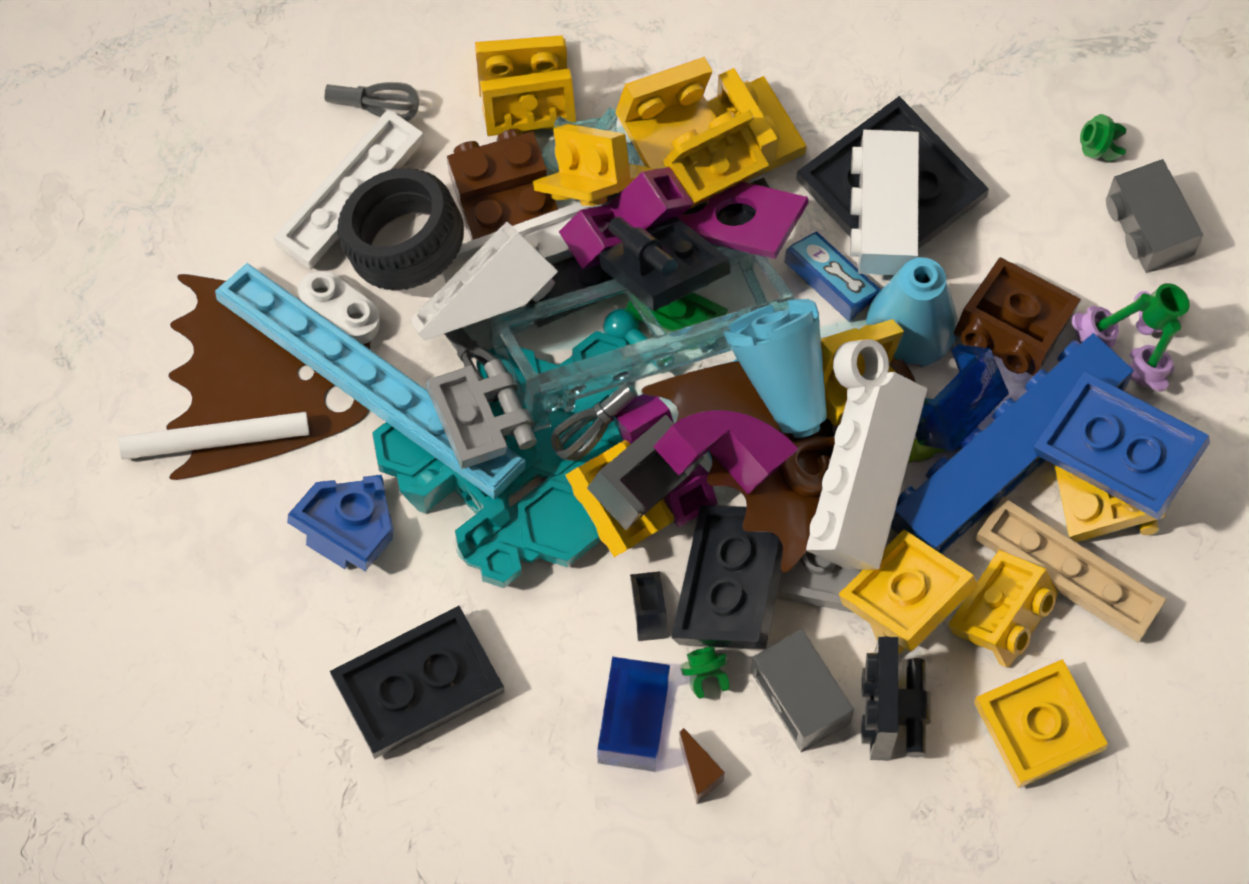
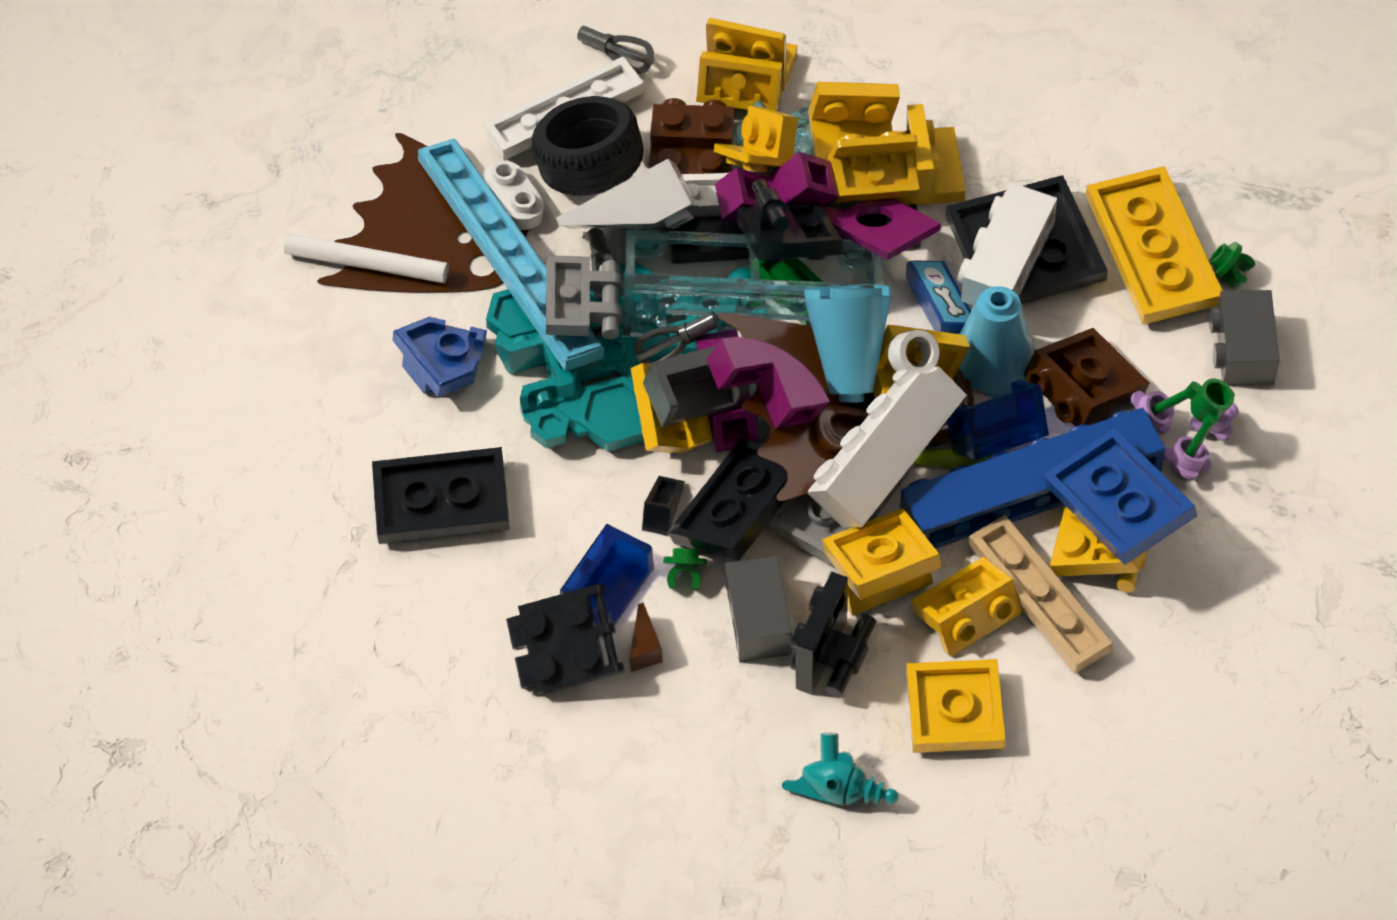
camera: 25 degrees right, 10 degrees down
(623, 803) = (563, 641): none -> black plate
(960, 846) = (838, 778): none -> teal piece
(1019, 142) = (1154, 245): none -> yellow plate

